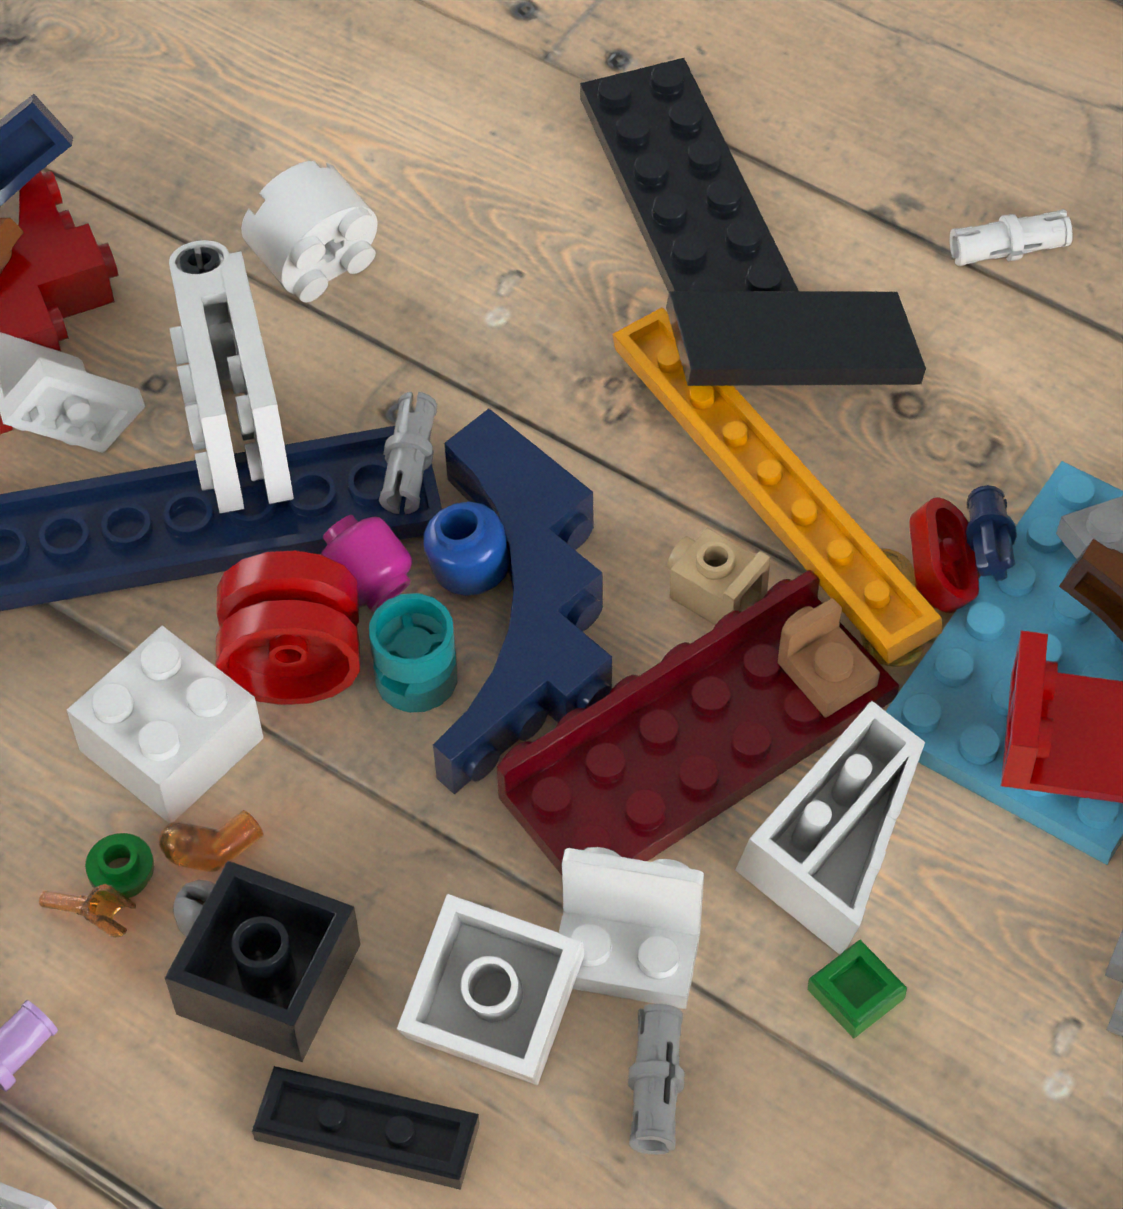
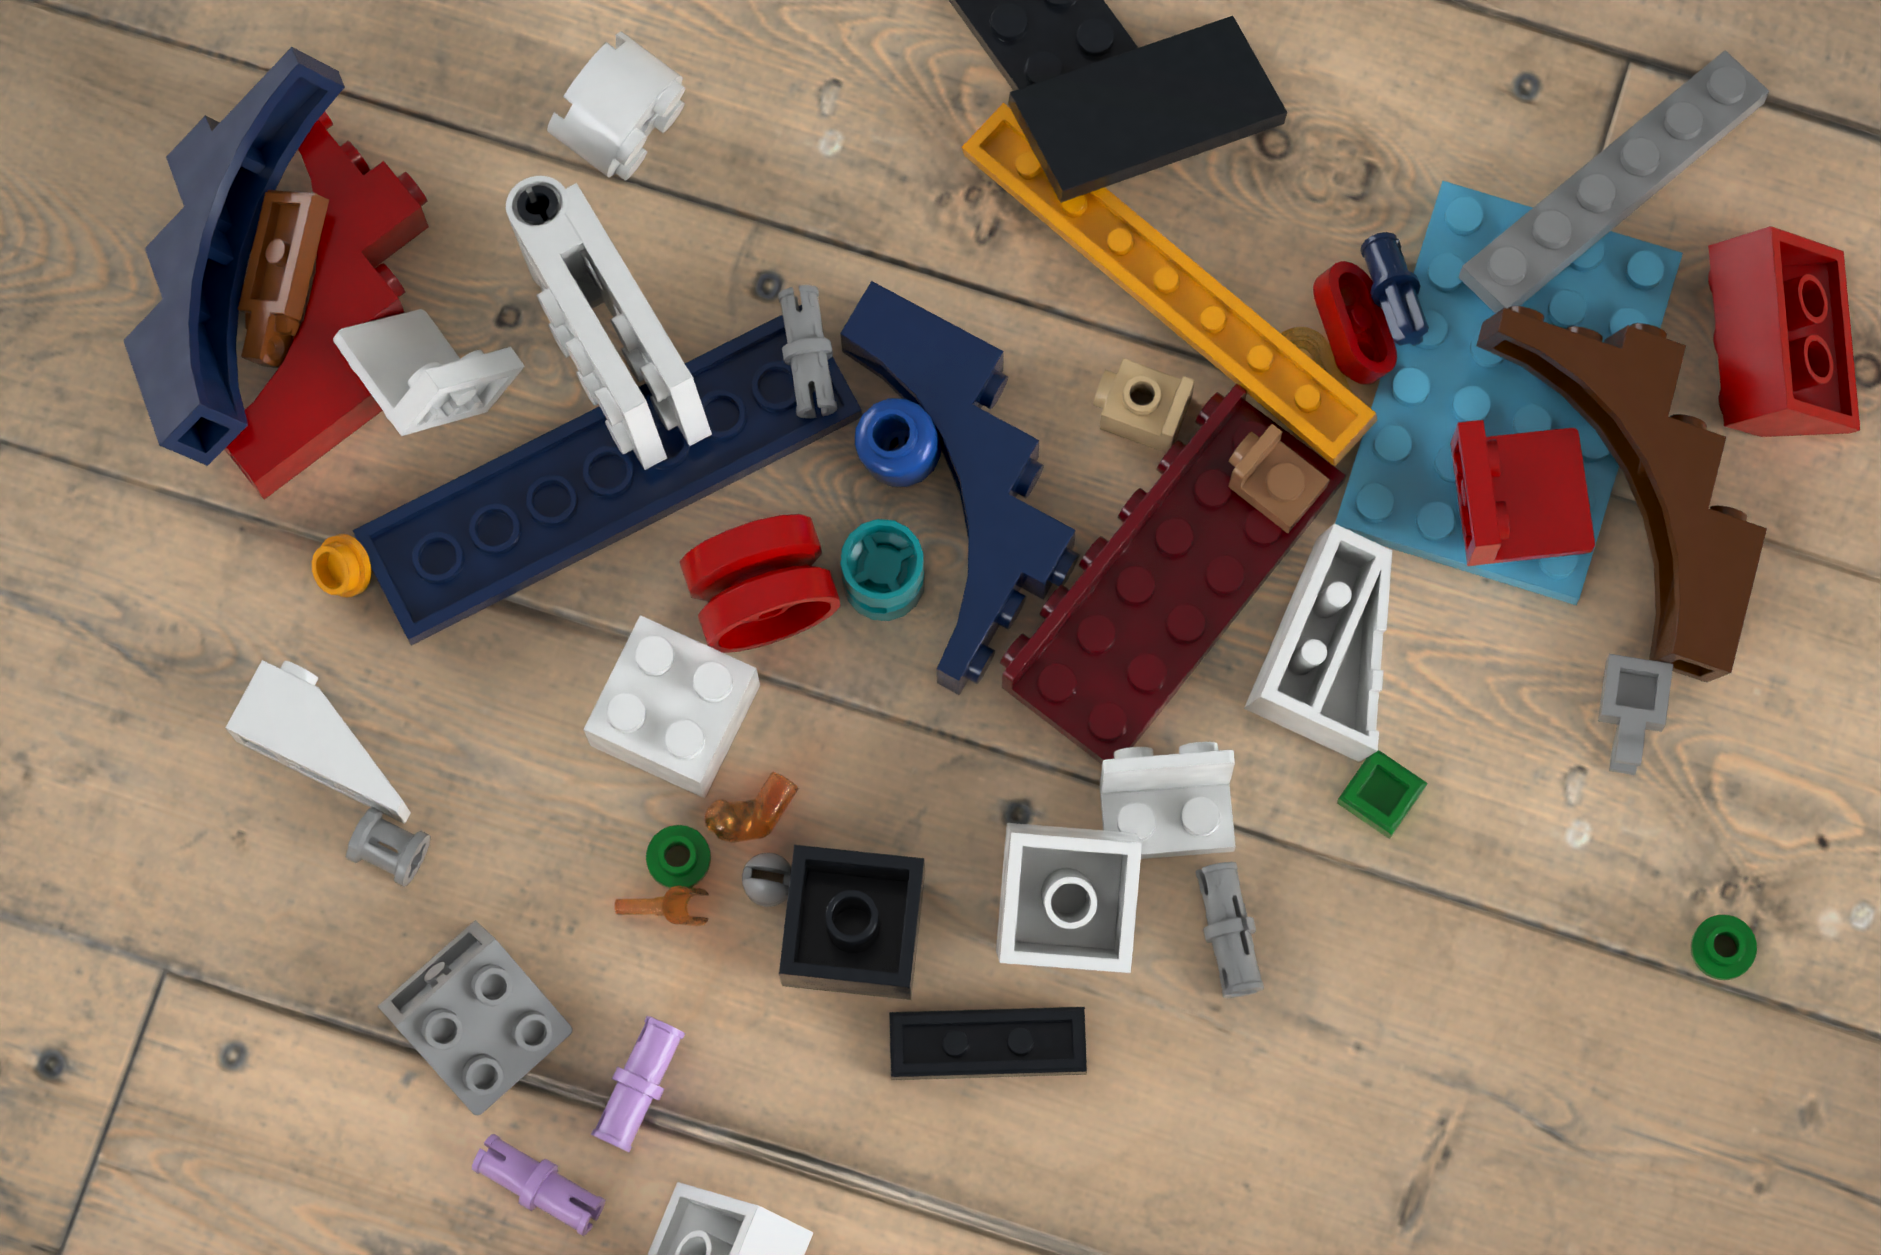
camera: 15 degrees left, 20 degrees up
(372, 557) = (803, 481): dark pink head -> none

